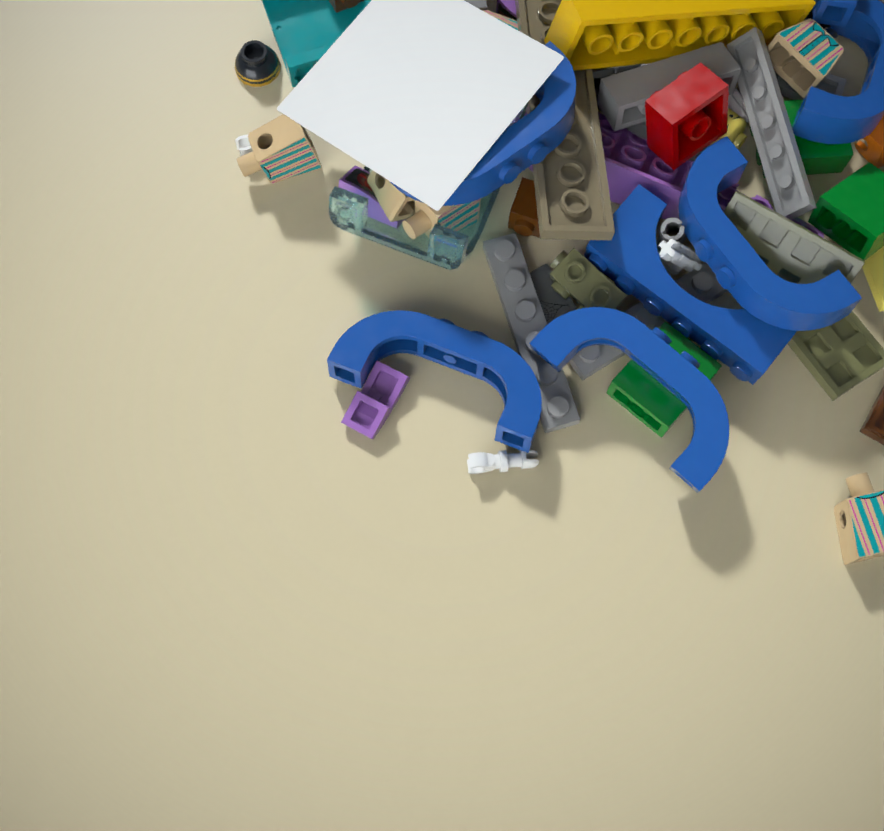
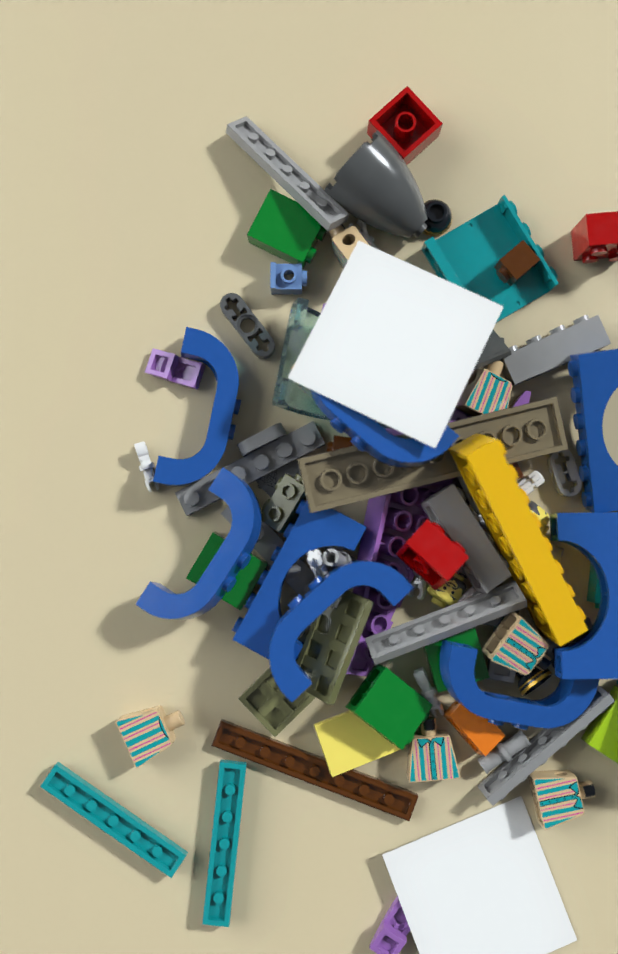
camera: 85 degrees right, 15 degrees up
(139, 65) = (406, 124): none -> red brick
(154, 204) = (287, 173): none -> light grey plate
(206, 101) = (380, 189): none -> dark grey cylinder
(226, 223) = (286, 230): none -> green brick
(294, 244) = (280, 285): none -> medium blue brick
(334, 312) = (230, 315): none -> dark grey beam
(495, 306) = (261, 439): none -> light grey beam
(833, 177) = (428, 691): none -> white piece
(849, 63) = (533, 680): none -> black piece

